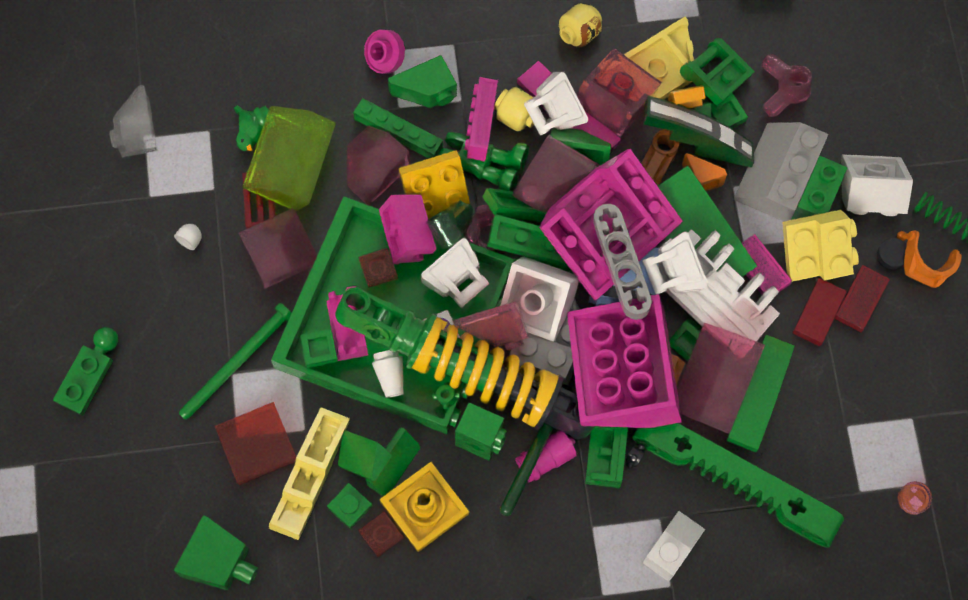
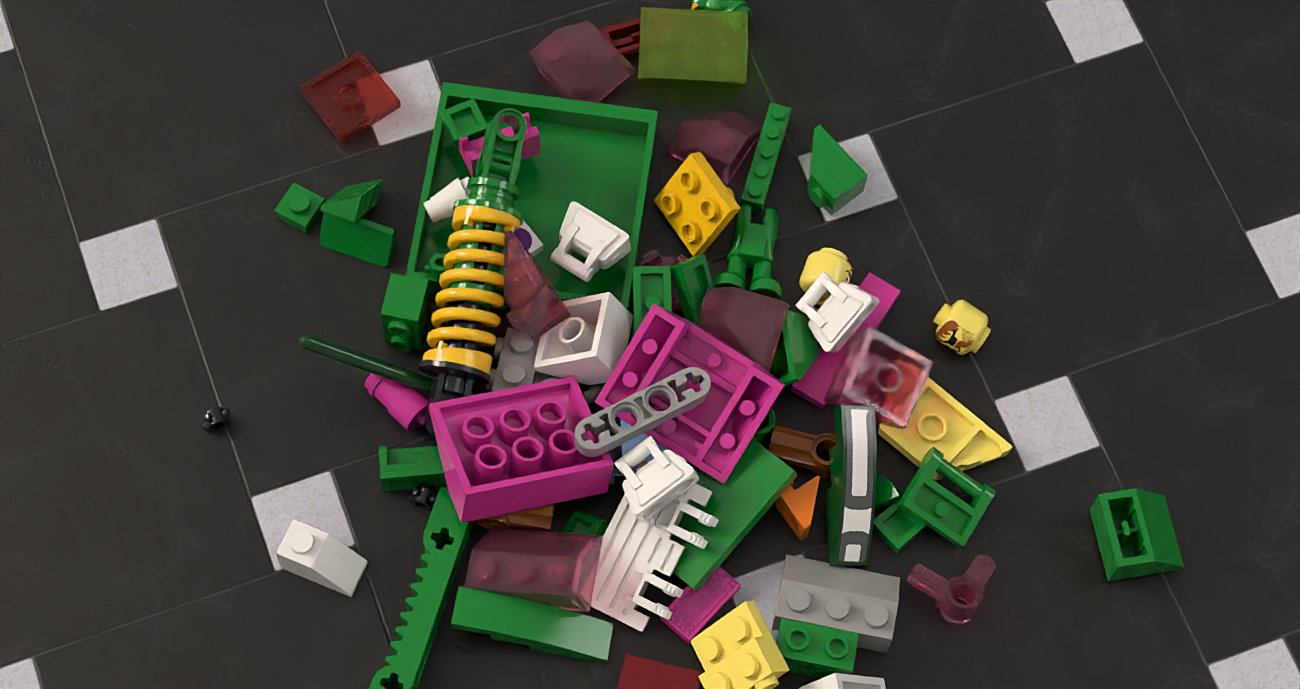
camera: 75 degrees right, 5 degrees down
(215, 557) = (214, 85): green torso -> none
(282, 314) = (439, 55): green bar -> none
(309, 473) = (328, 158): light yellow slope -> none
(377, 267) = (578, 164): clear red tile -> none
(380, 534) = (274, 246): clear red tile -> none
(384, 51) = (858, 118): dark pink plate -> none
(406, 228) = (631, 181): dark pink hinge -> none
(424, 506) = (313, 281): yellow plate -> none
(449, 224) = (645, 222): clear green piece -> none
(481, 119) = (798, 237): dark pink piece -> none
(688, 97) = (891, 460): light orange slope -> none

